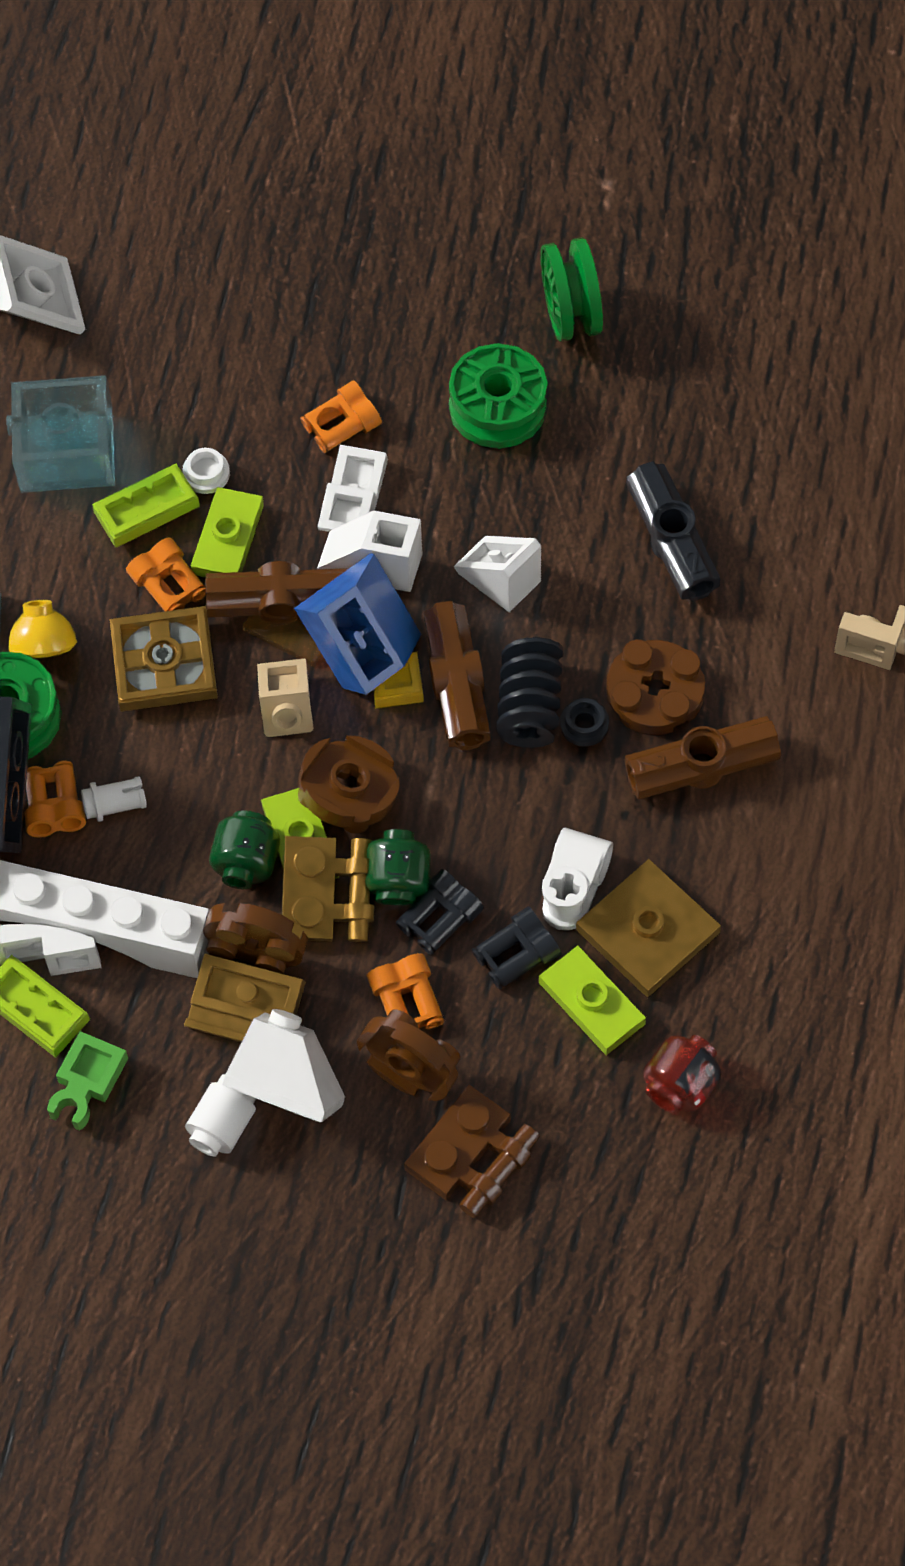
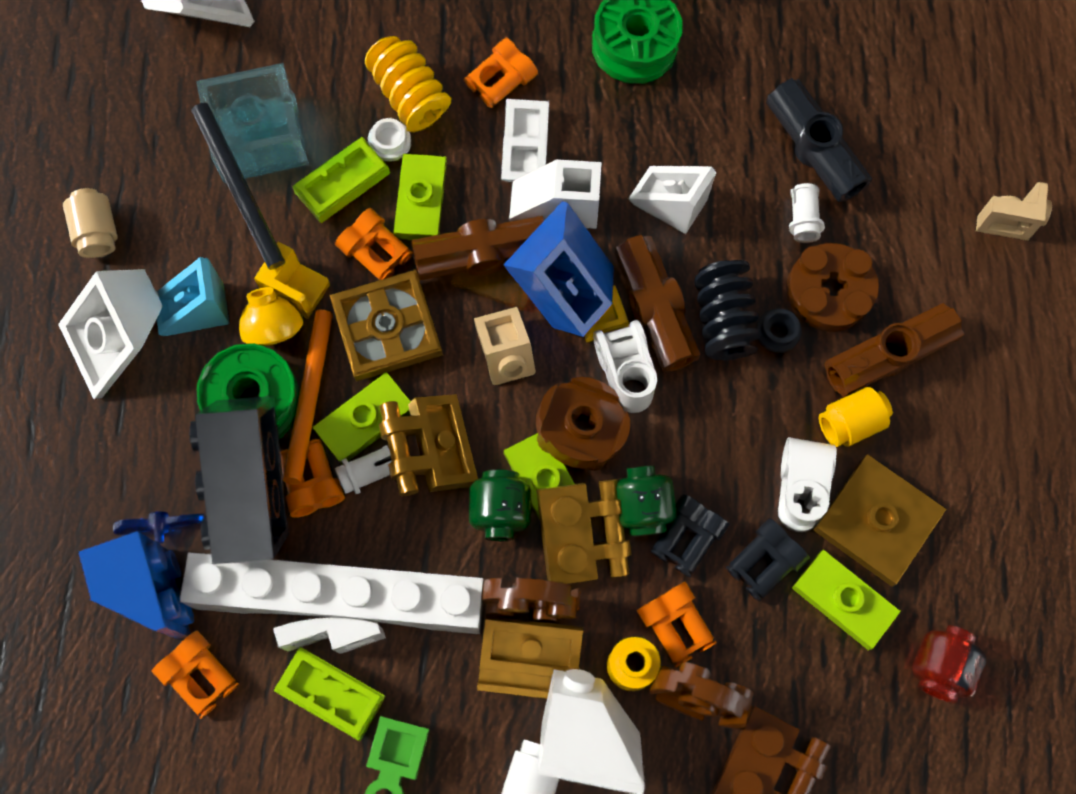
camera: 15 degrees left, 10 degrees up
(35, 493) = (238, 186): none -> black bar
(67, 717) = (308, 397): none -> orange bar
(73, 599) = (294, 282): none -> yellow panel
(122, 748) = (357, 421): none -> lime plate
(196, 775) = (441, 443): none -> pearl gold plate
(236, 413) = (407, 82): none -> yellow piece
(344, 1017) = (622, 675): none -> yellow brick
(411, 729) = (625, 358): none -> white piece
(641, 616) = (806, 219): none -> white pin
(644, 819) = (856, 417): none -> yellow brick

